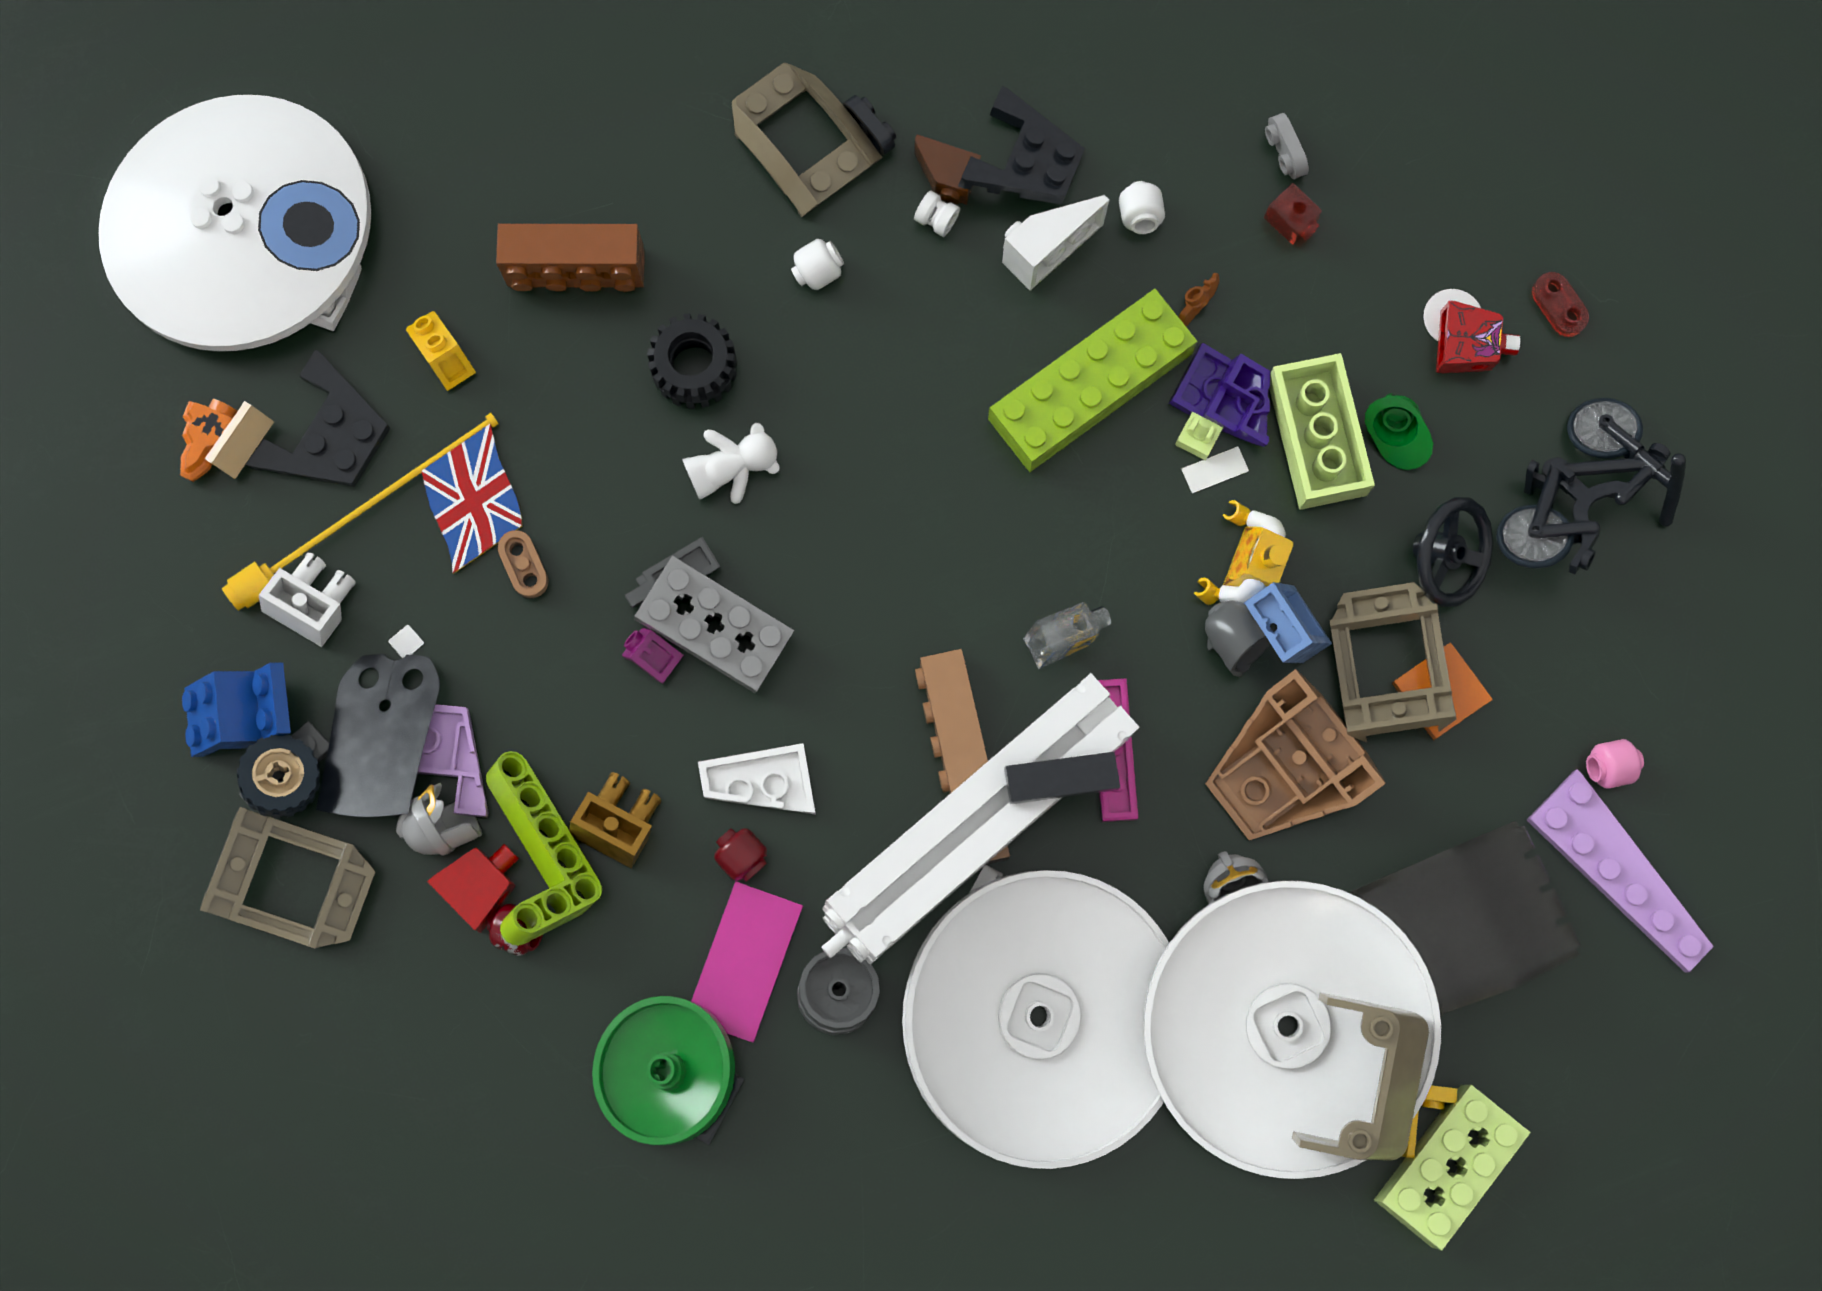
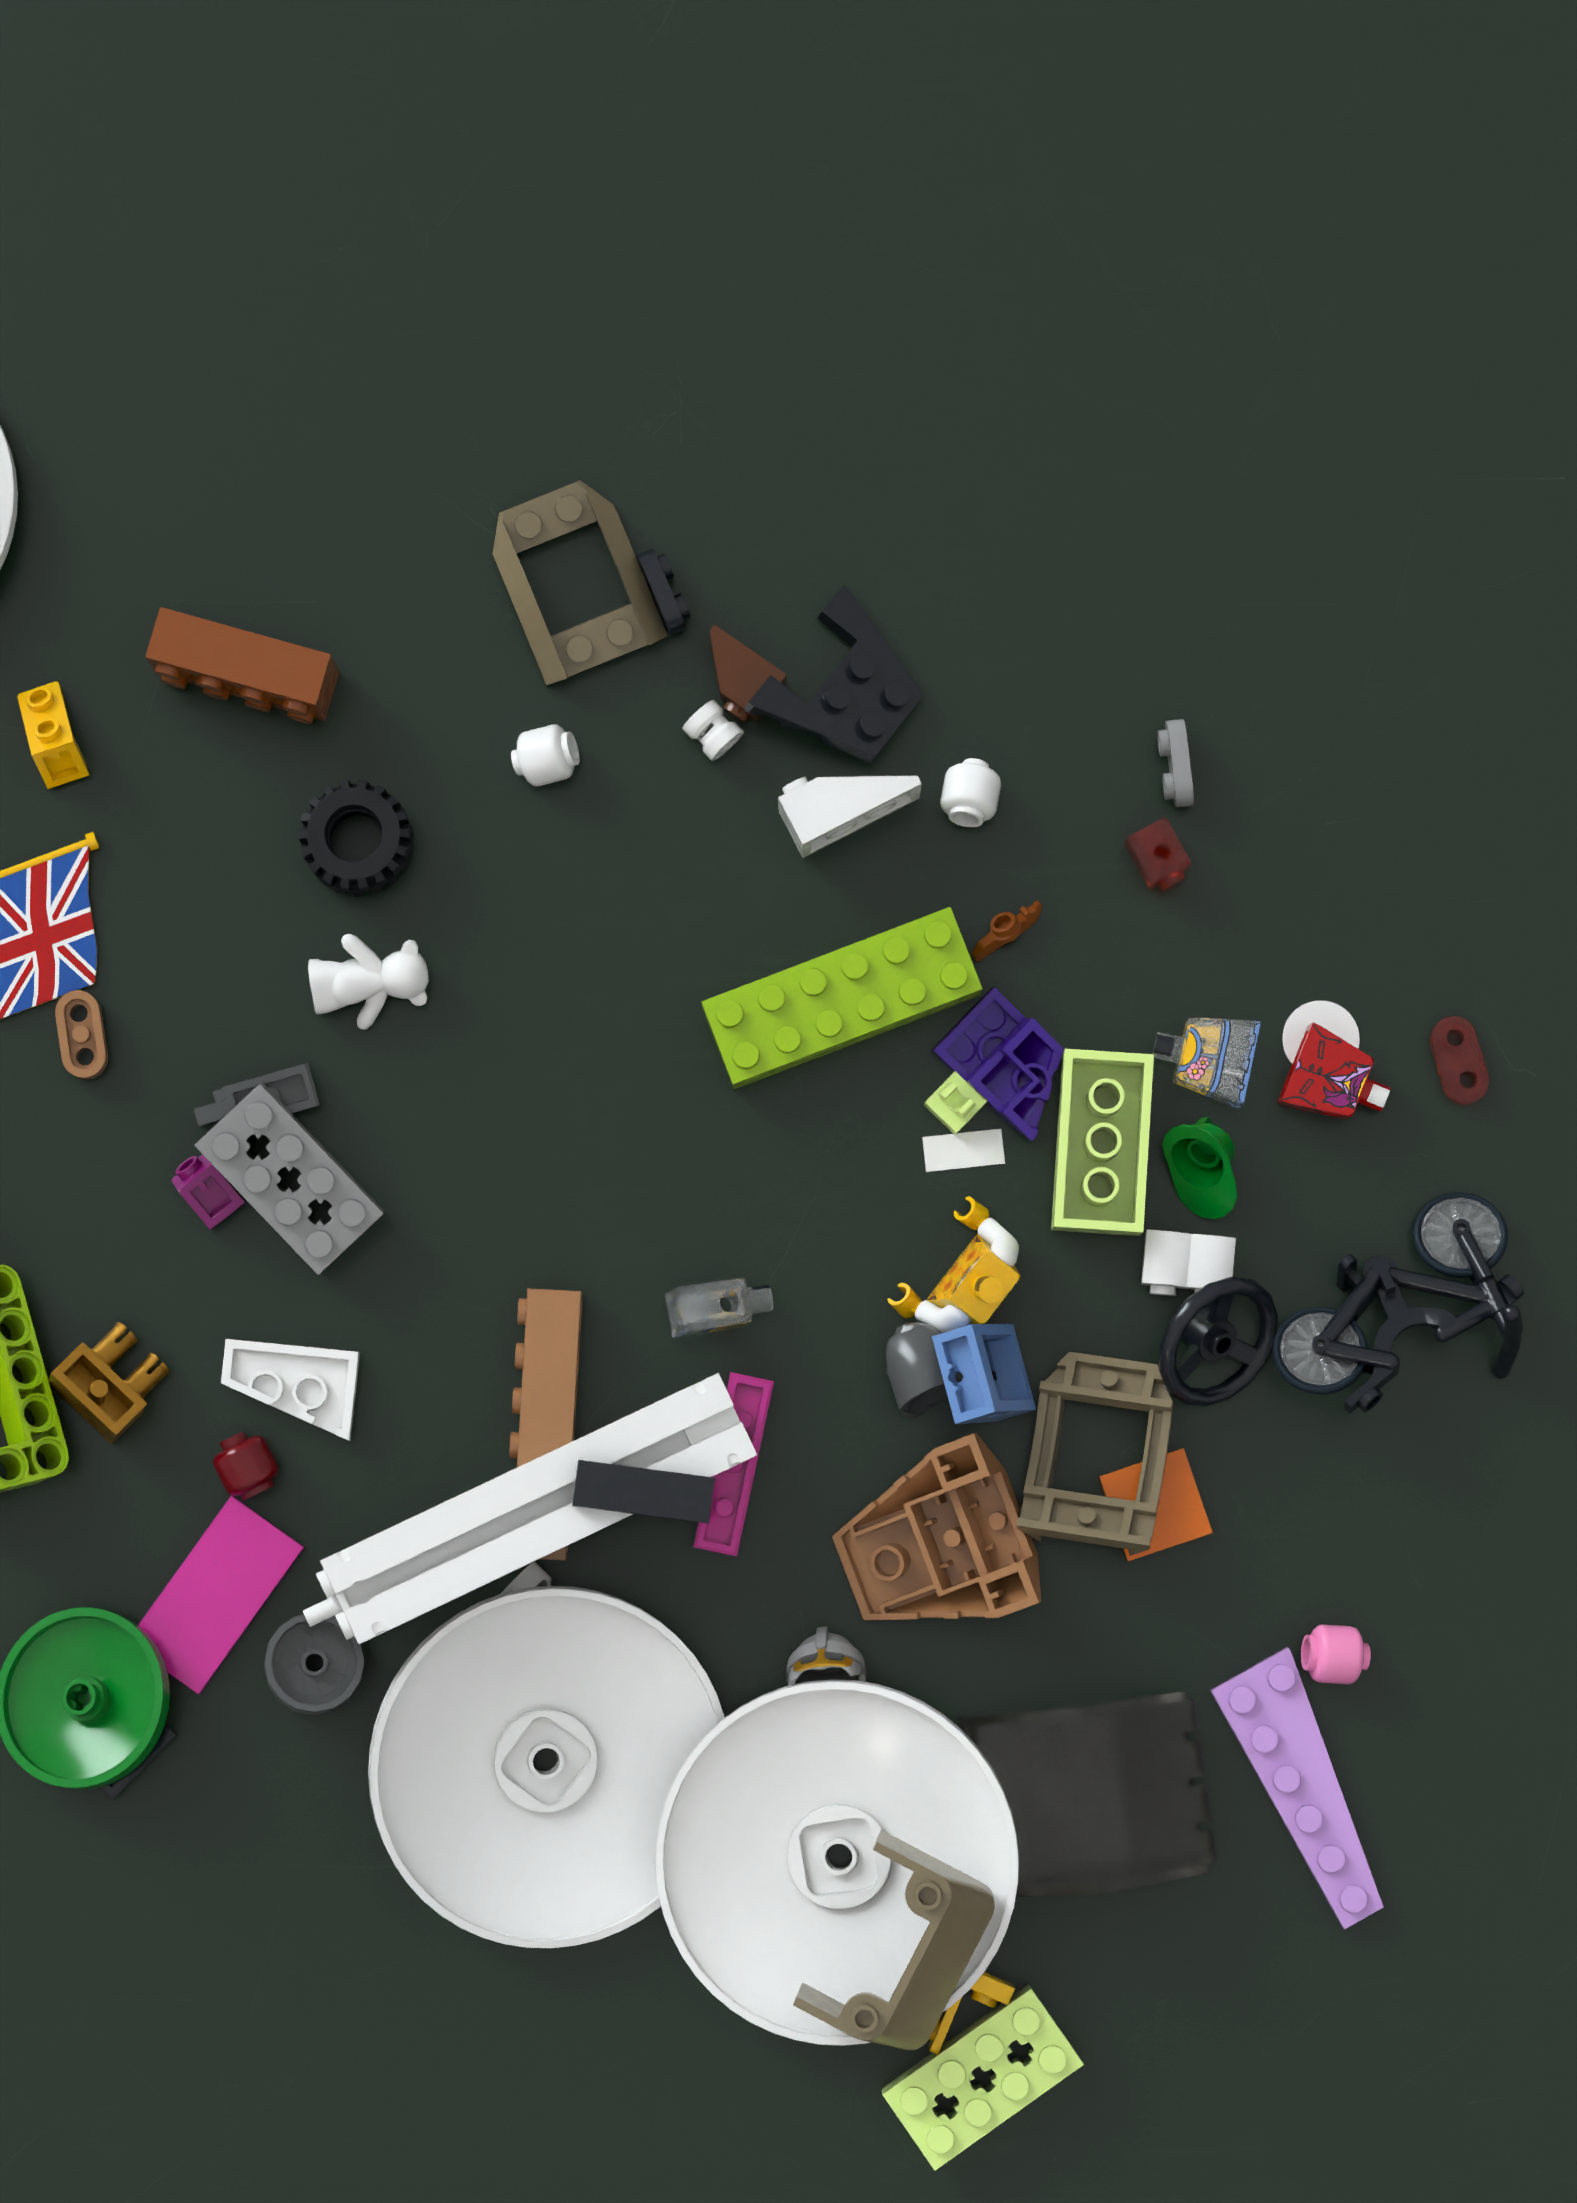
camera: 20 degrees right, 5 degrees up
(1381, 349) = (1212, 1057): none -> clear torso
(1407, 502) = (1185, 1261): none -> white brick

